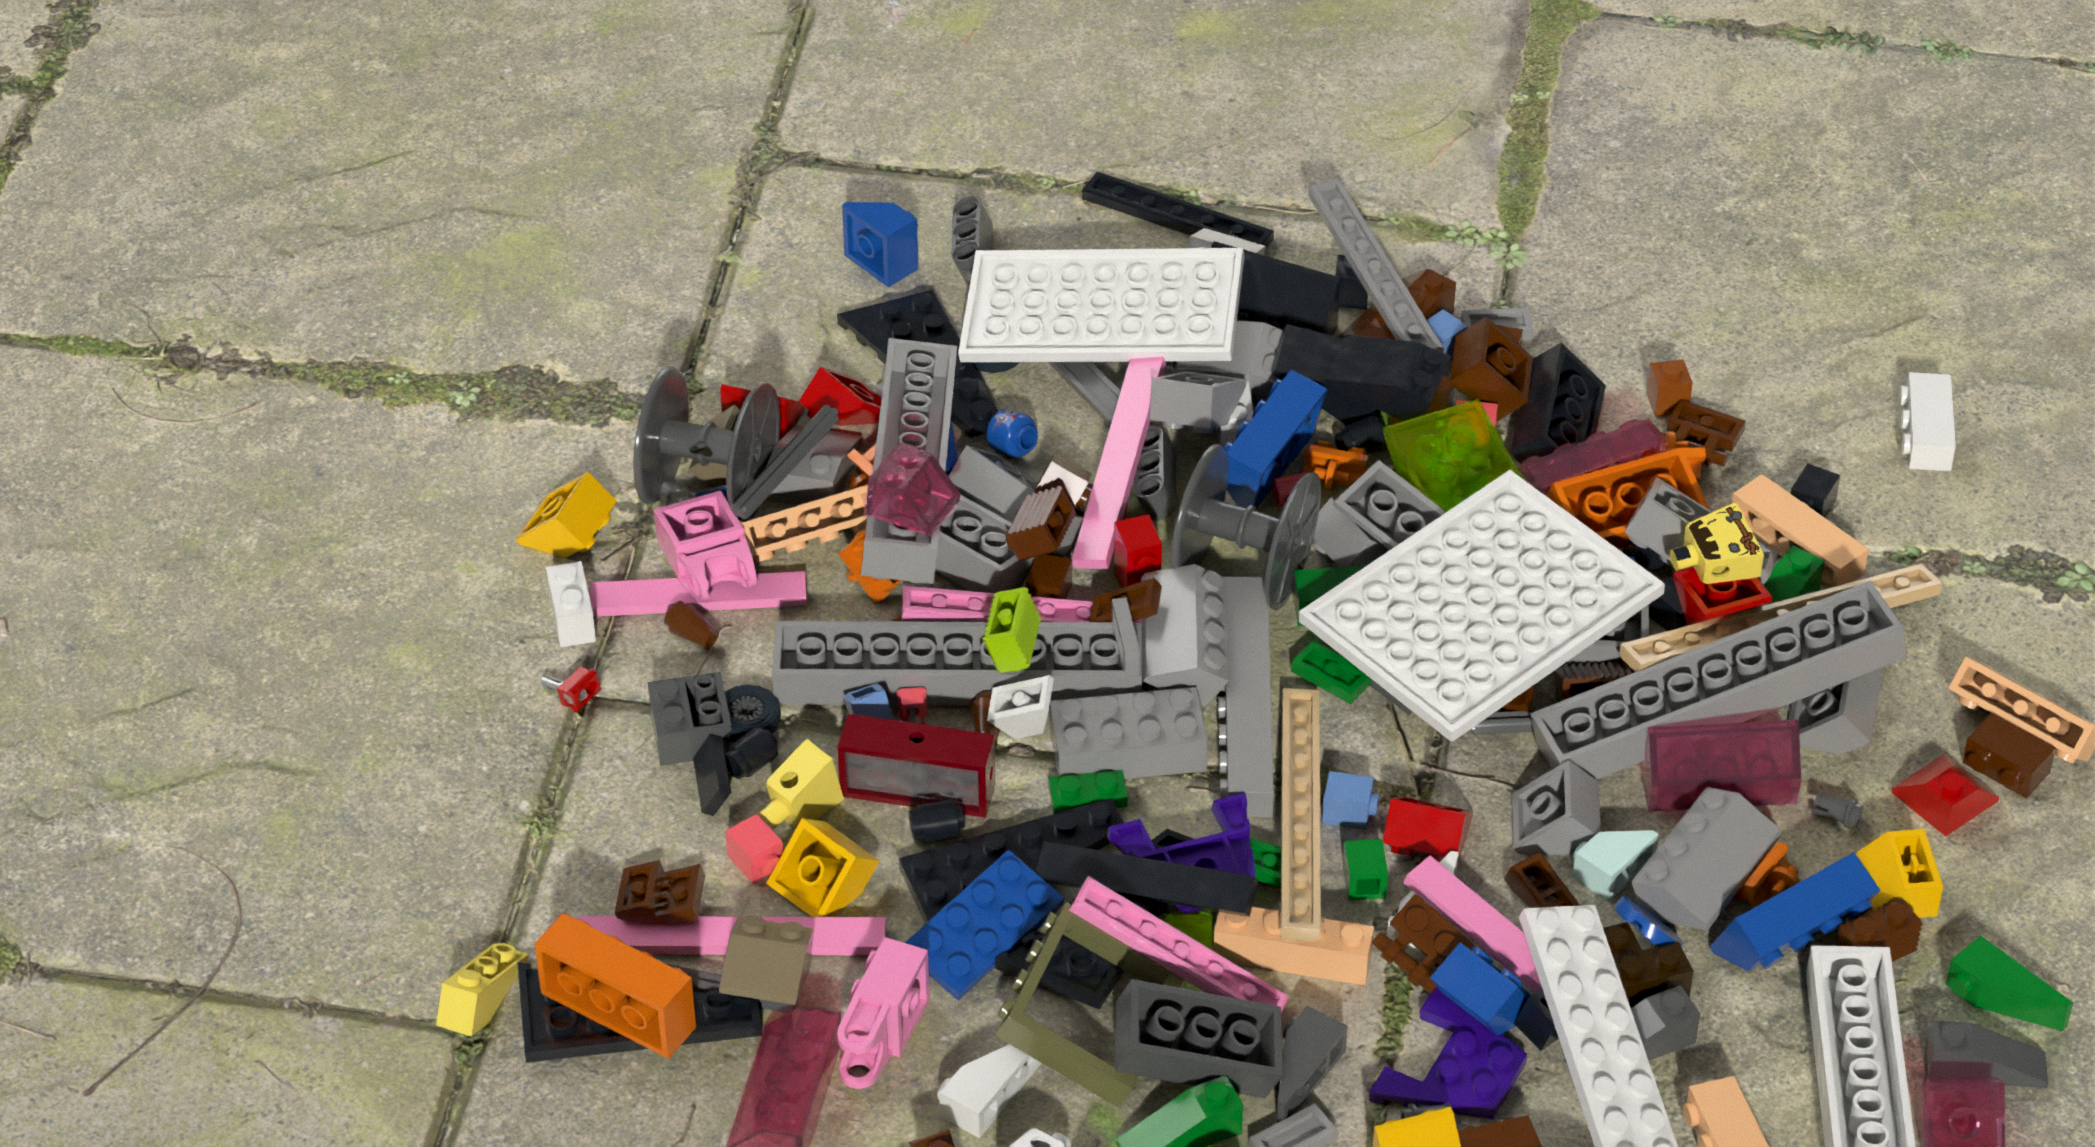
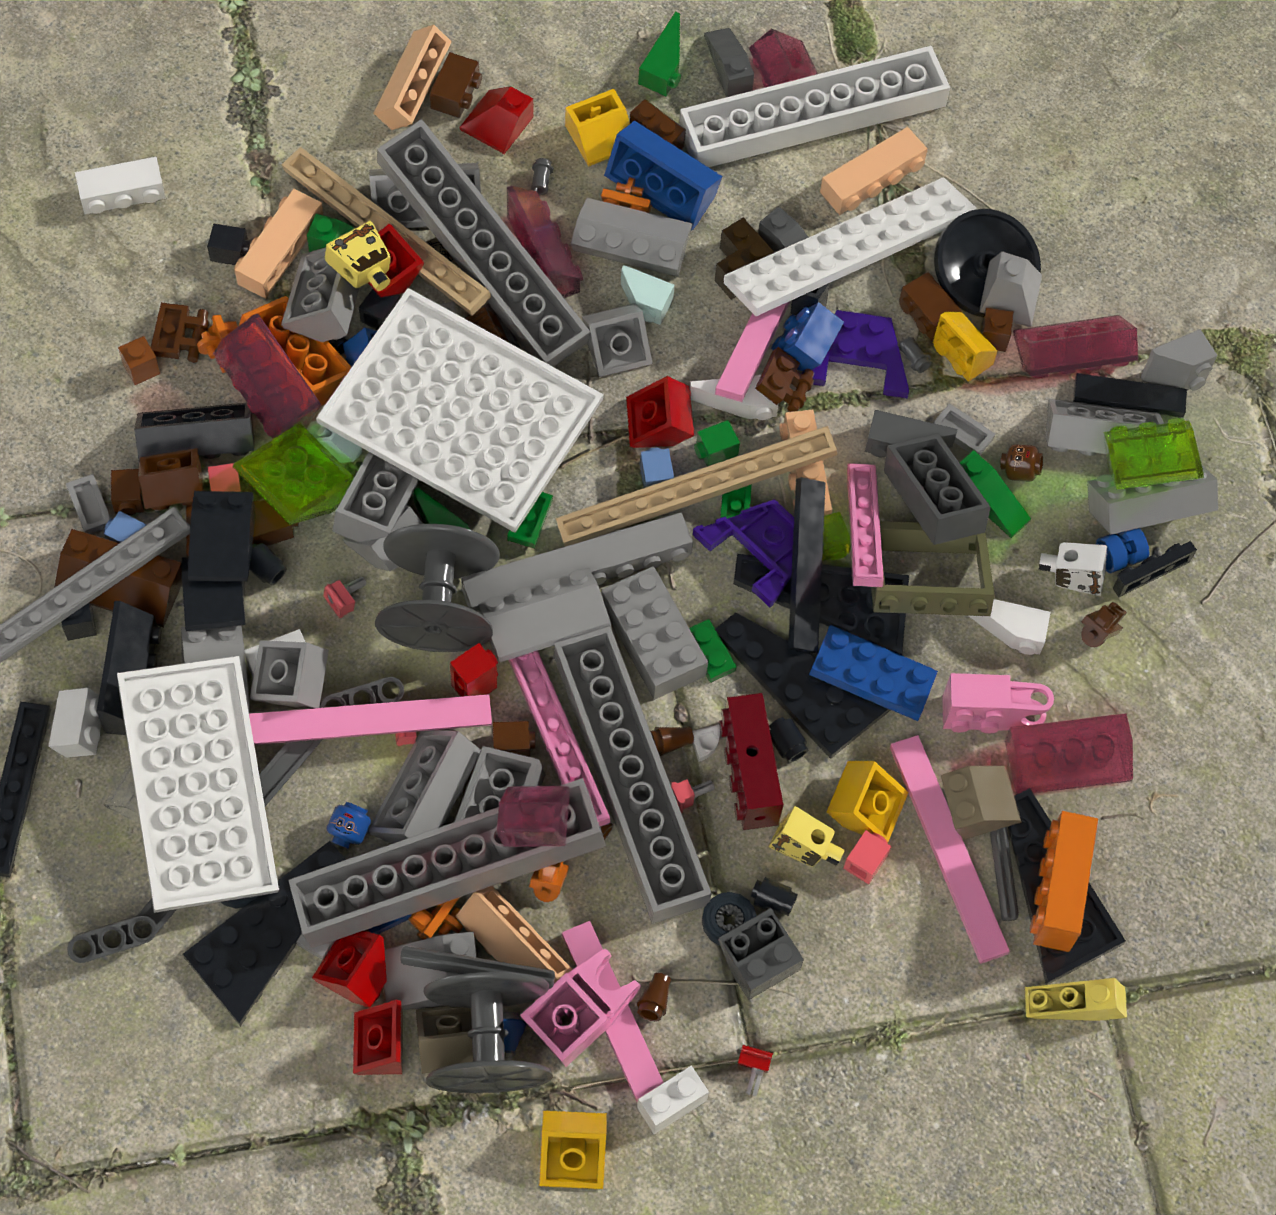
camera: 115 degrees left, 20 degrees up
(658, 896) = (938, 908): reddish brown slope -> none
(712, 775) = (810, 915): black tile -> none
(869, 702) = (707, 817): medium blue brick -> none
(881, 239) = (148, 1005): blue slope -> none
(1012, 630) = (620, 715): lime brick -> none
(1021, 707) = (667, 700): white slope -> none
(1040, 523) = (486, 740): reddish brown brick -> none
(1069, 476) = (412, 753): brick -> none
(1125, 637) = (587, 639): light grey tile -> none
(1142, 600) = (543, 658): reddish brown plate -> none
(1273, 438) = (311, 607): blue slope -> none
(1335, 465) = (308, 571): orange hips -> none
(1527, 891) = (677, 348): reddish brown slope -> none
(1646, 922) = (705, 256): blue tile -> none

